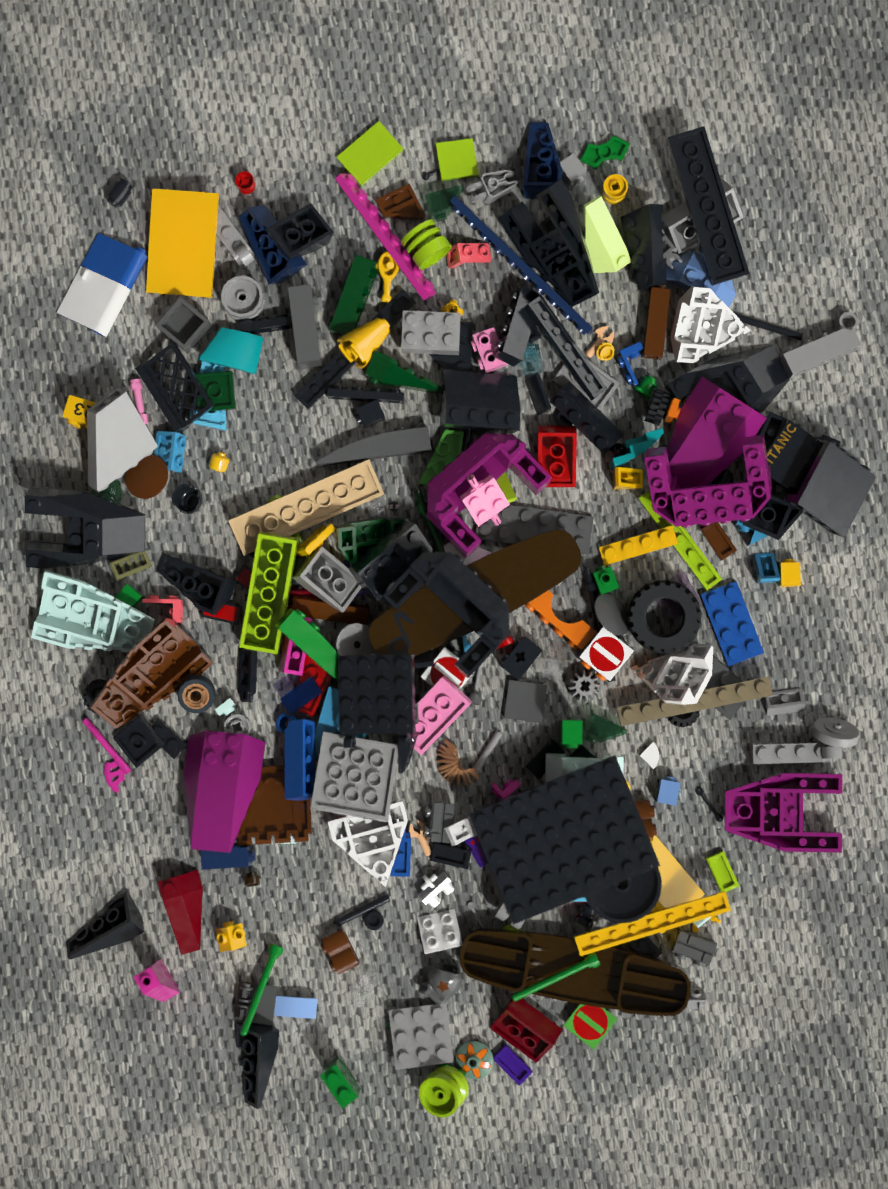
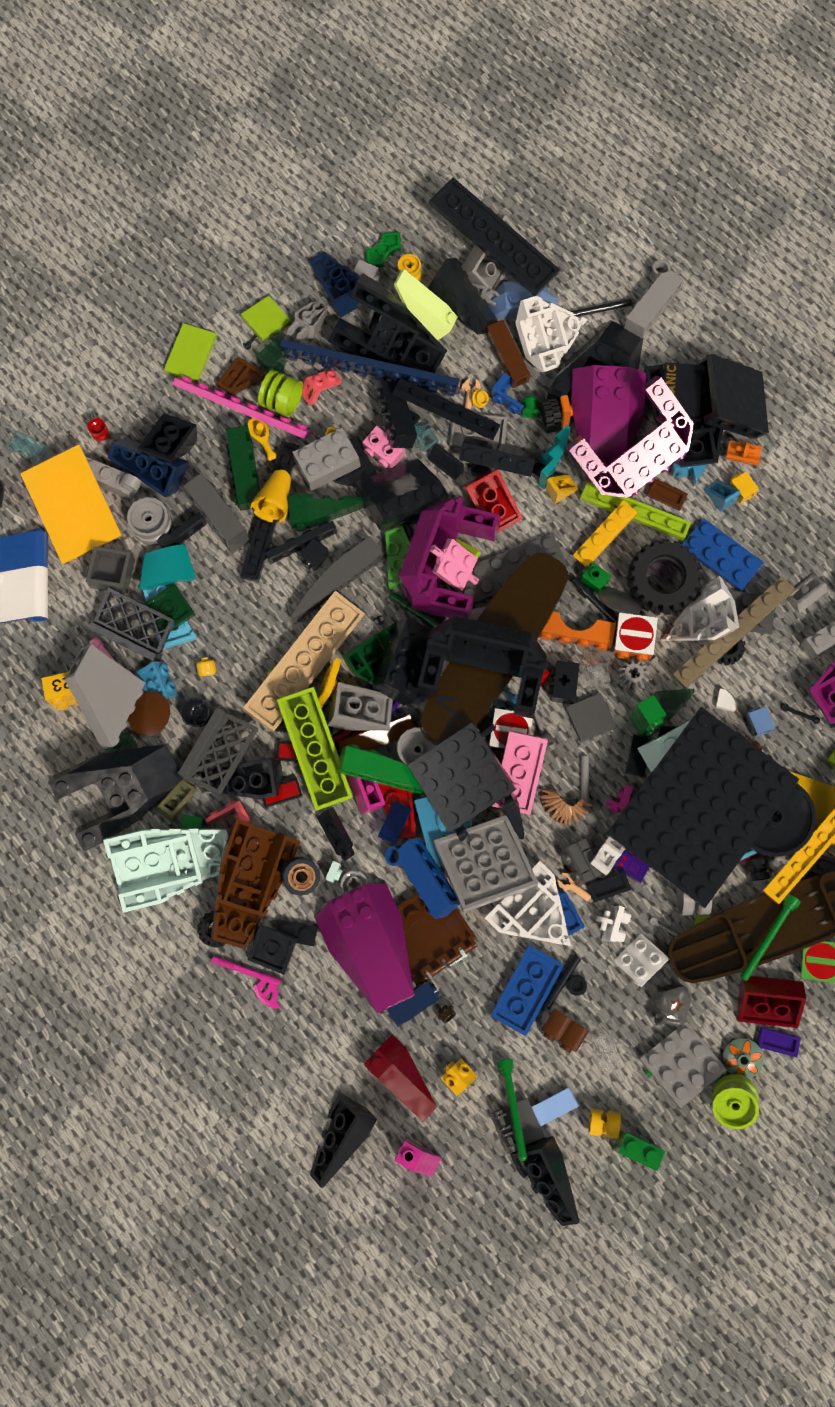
camera: 30 degrees left, 10 degrees down
(174, 163) = (28, 448): none -> clear light blue tile
(180, 531) = (207, 741): none -> dark grey fence
(325, 1037) = (604, 1123): none -> yellow wheel
(329, 900) = (527, 990): none -> blue plate
(810, 542) = (743, 452): none -> orange hips

